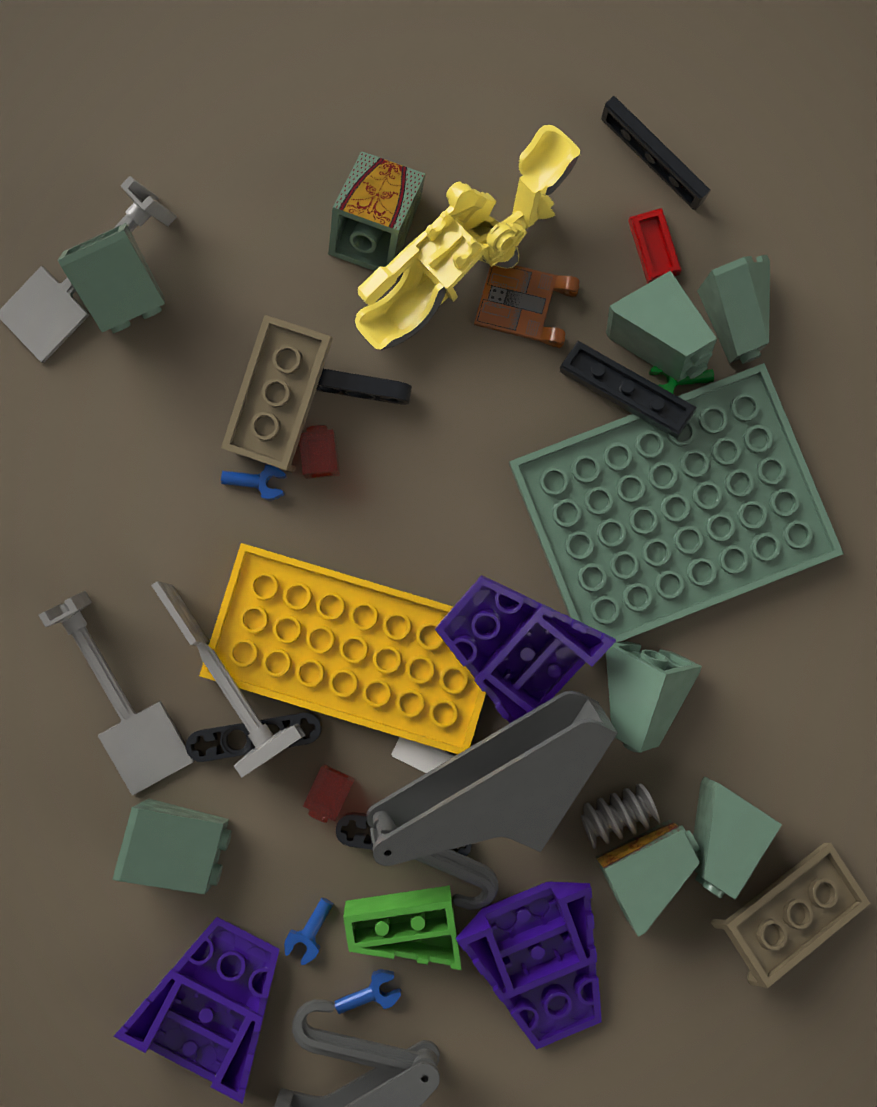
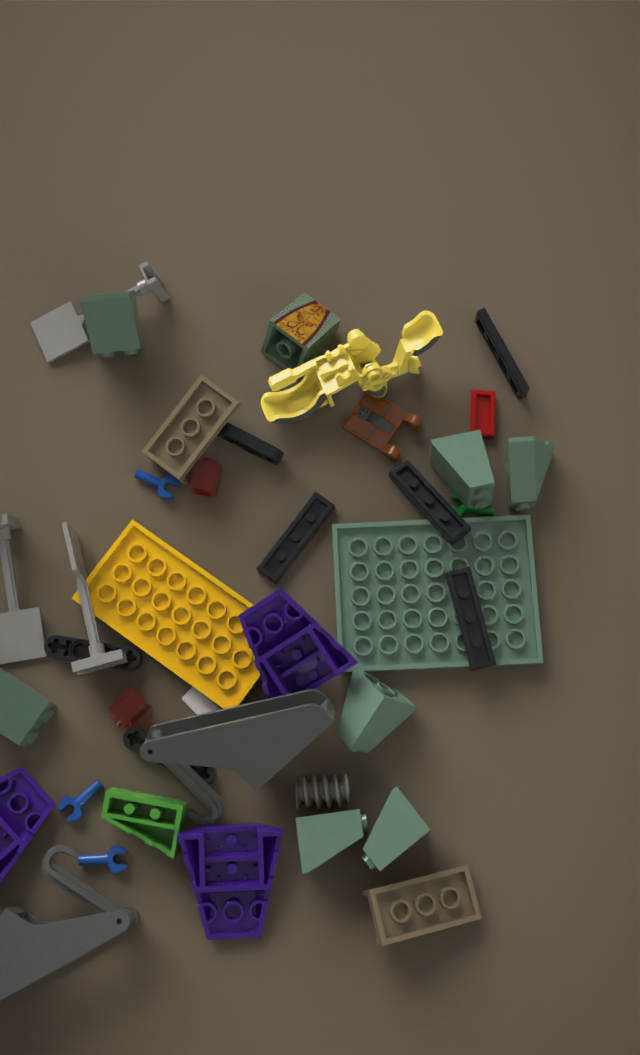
camera: 25 degrees right, 10 degrees down
(466, 494) = (295, 537): none -> black tile
(733, 528) = (470, 619): none -> black tile

